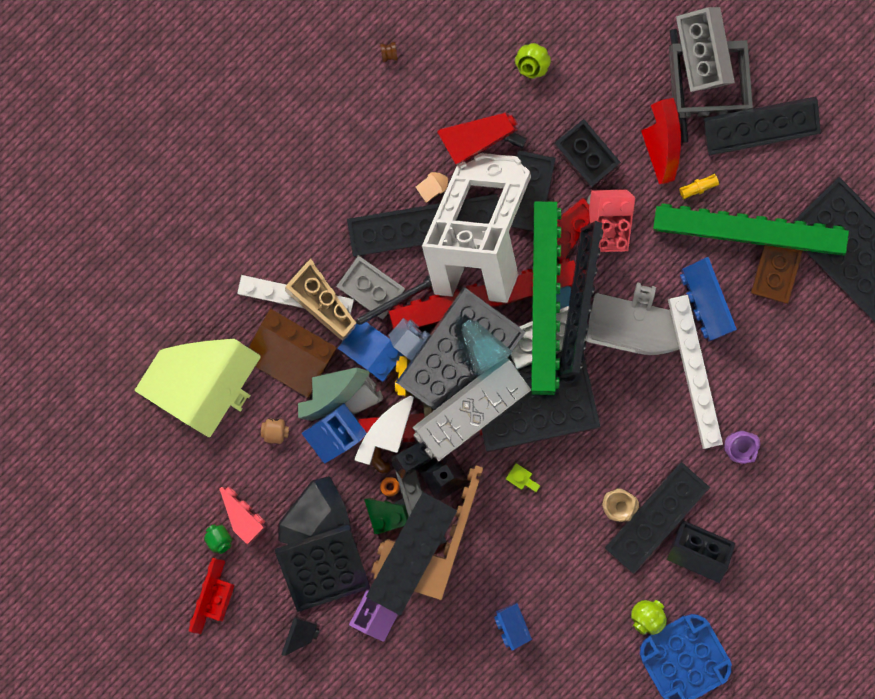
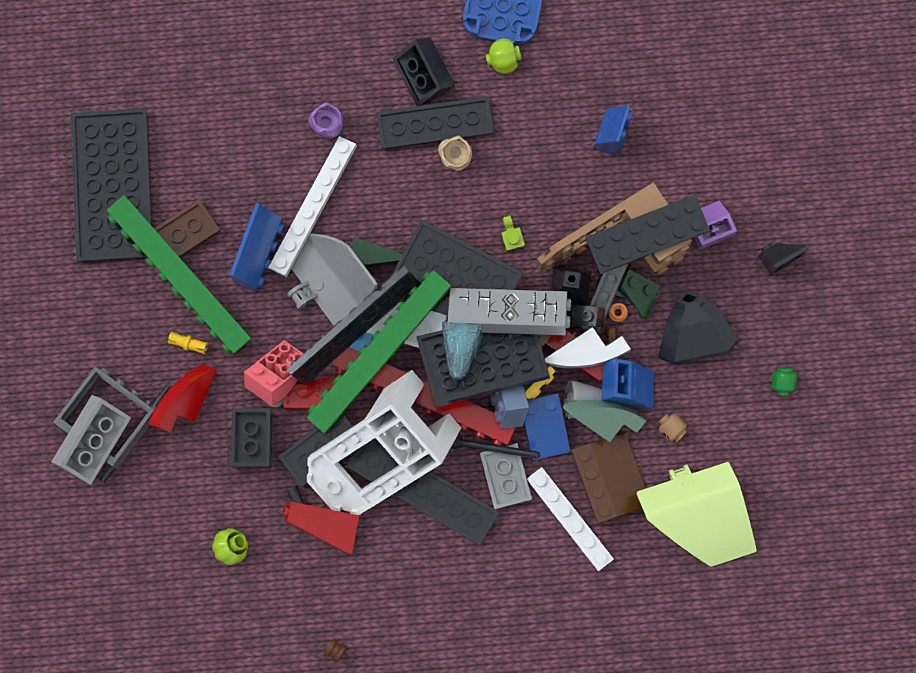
camera: 140 degrees left, 5 degrees down
(213, 597) = (824, 338): red bracket -> none
(243, 522) = (753, 374): coral slope -> none
(320, 300) = (554, 499): tan wedge -> none
(322, 568) = (722, 289): black plate -> none
(432, 186) = (391, 514): light nougat tile -> none
(619, 369) = (374, 255): none -> dark green slope
(762, 125) = (100, 347): black plate -> none

